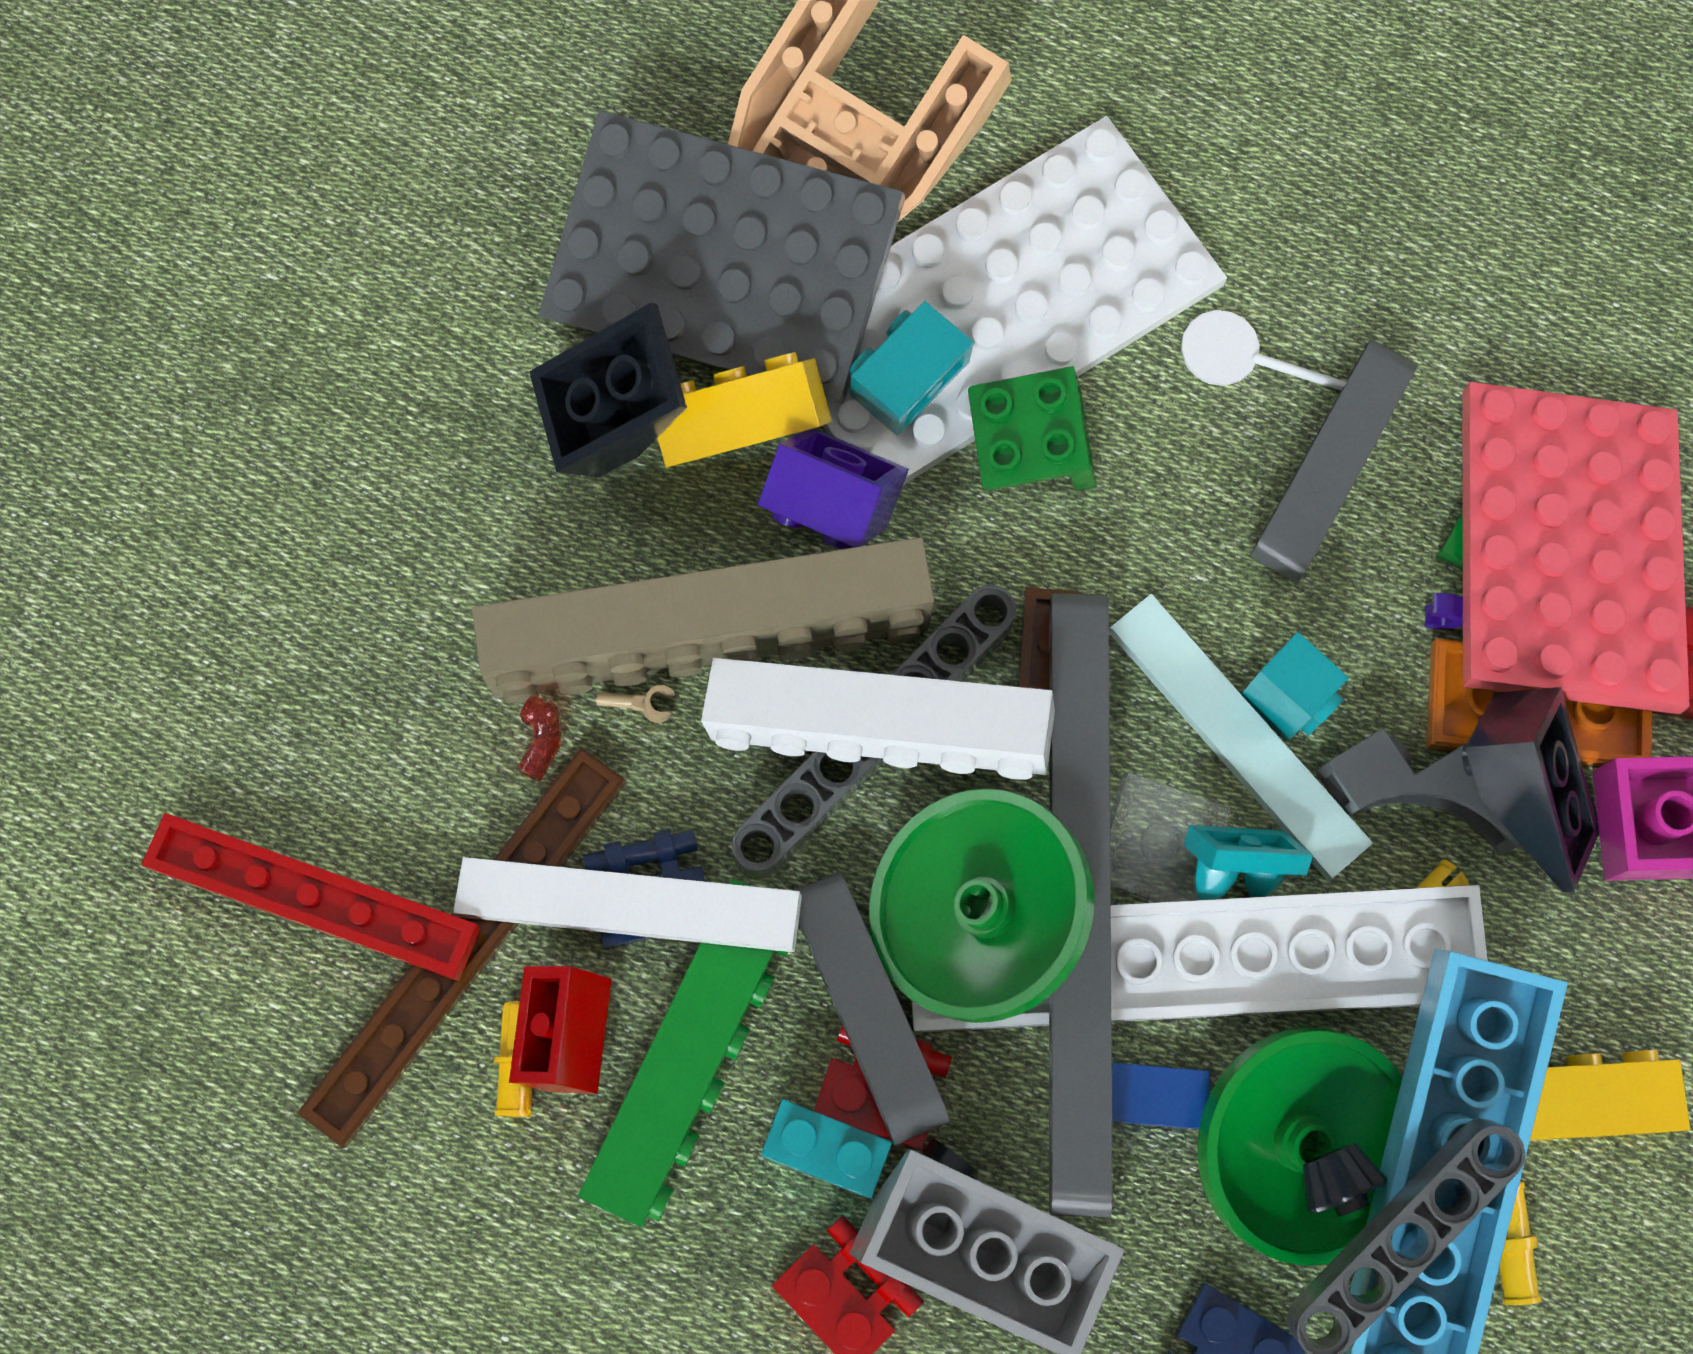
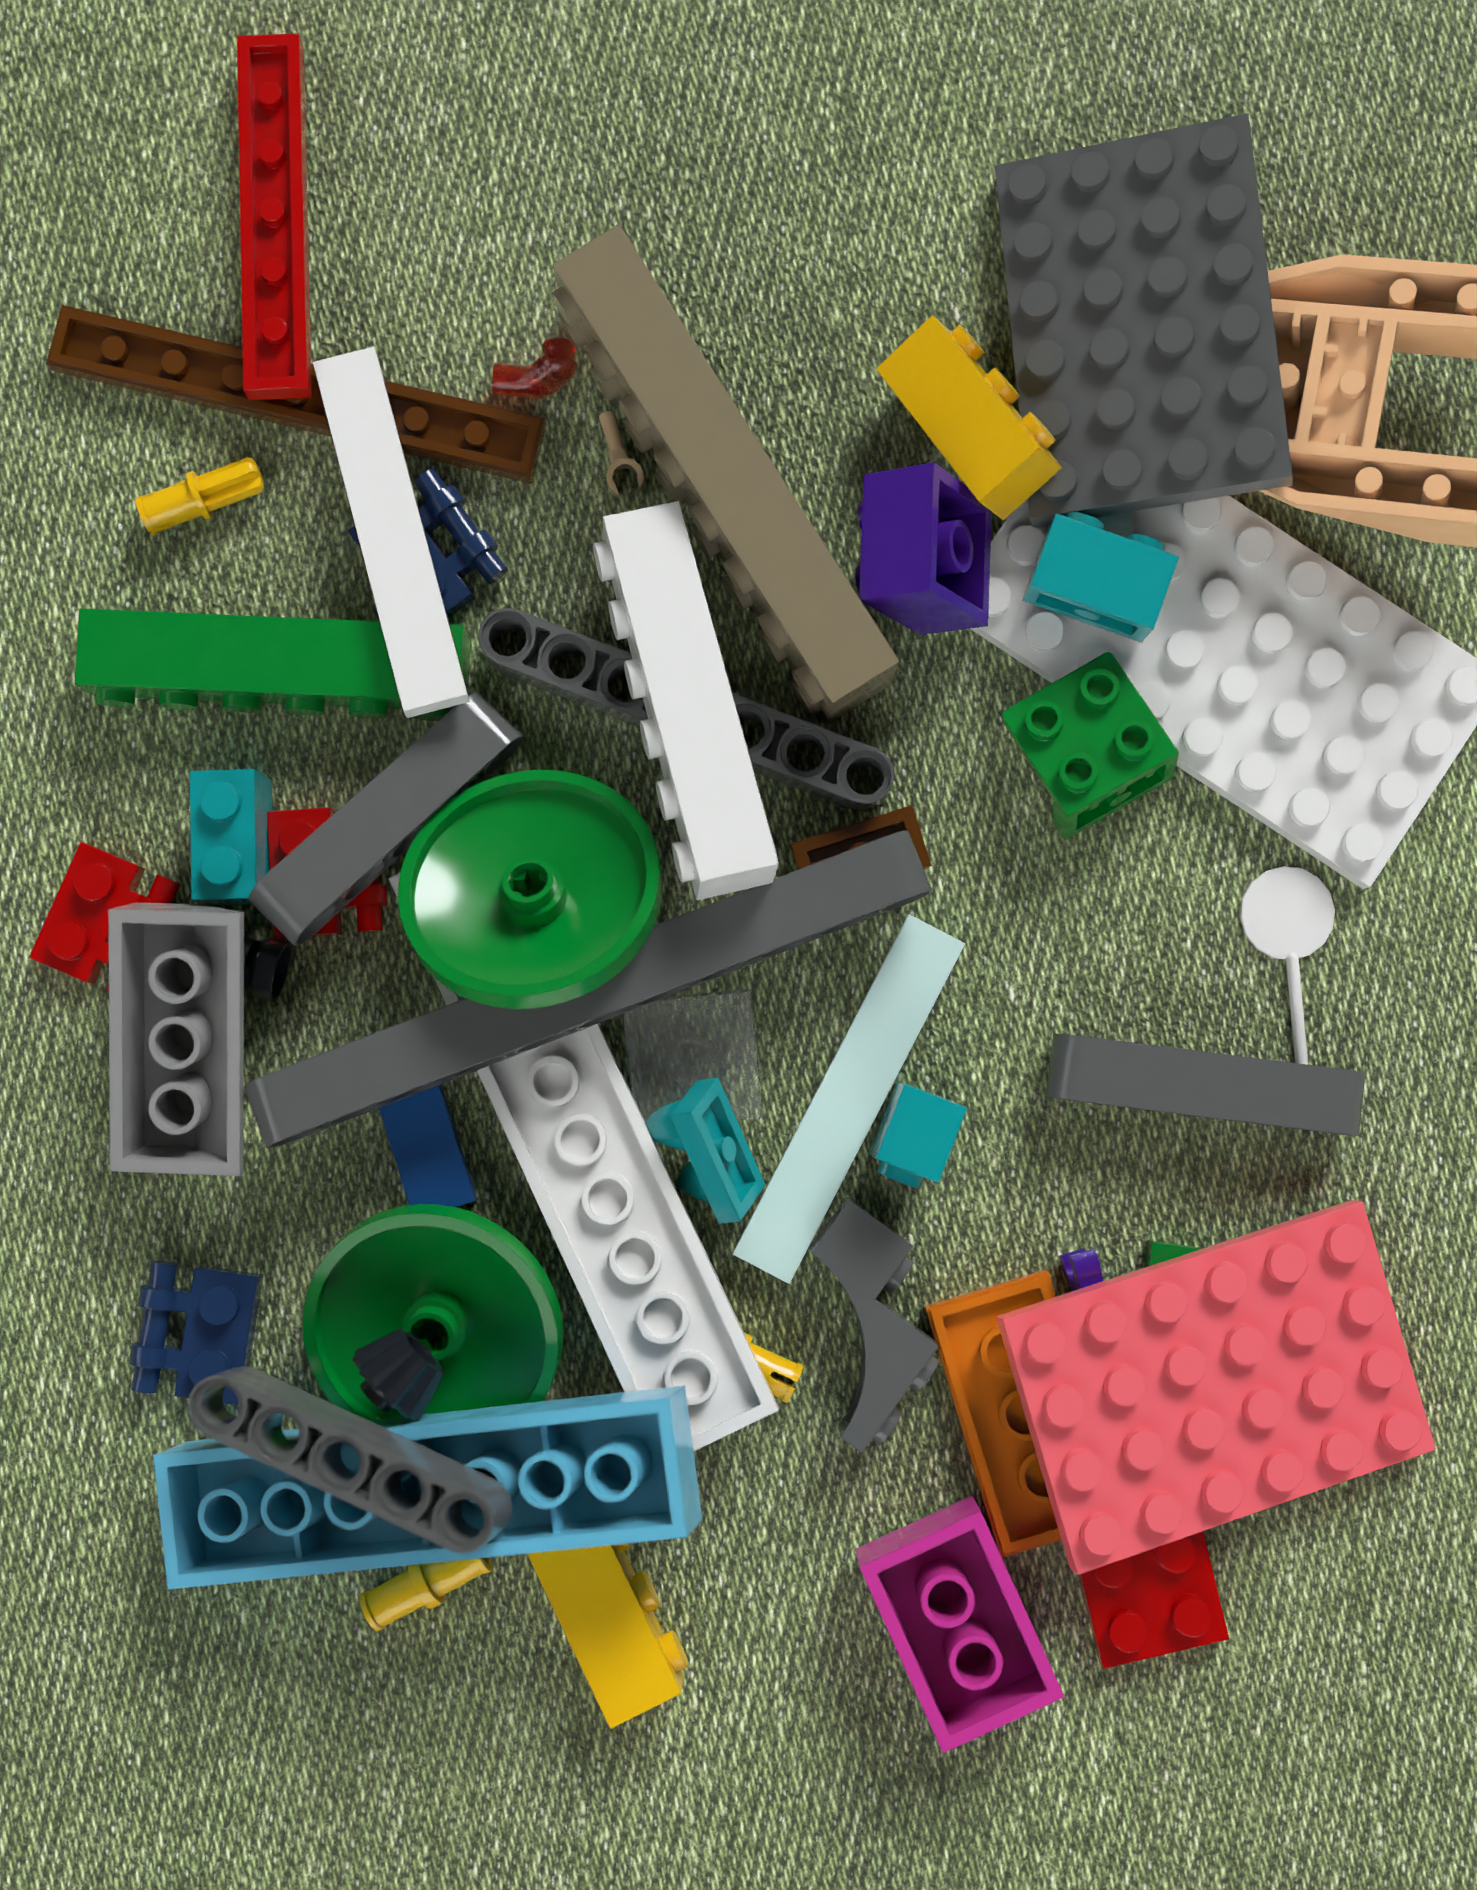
camera: 75 degrees right, 10 degrees up
(560, 1029) = (238, 521): red brick -> none
(609, 395) = (919, 265): black slope -> none
(1535, 779) = (919, 1431): black slope -> none

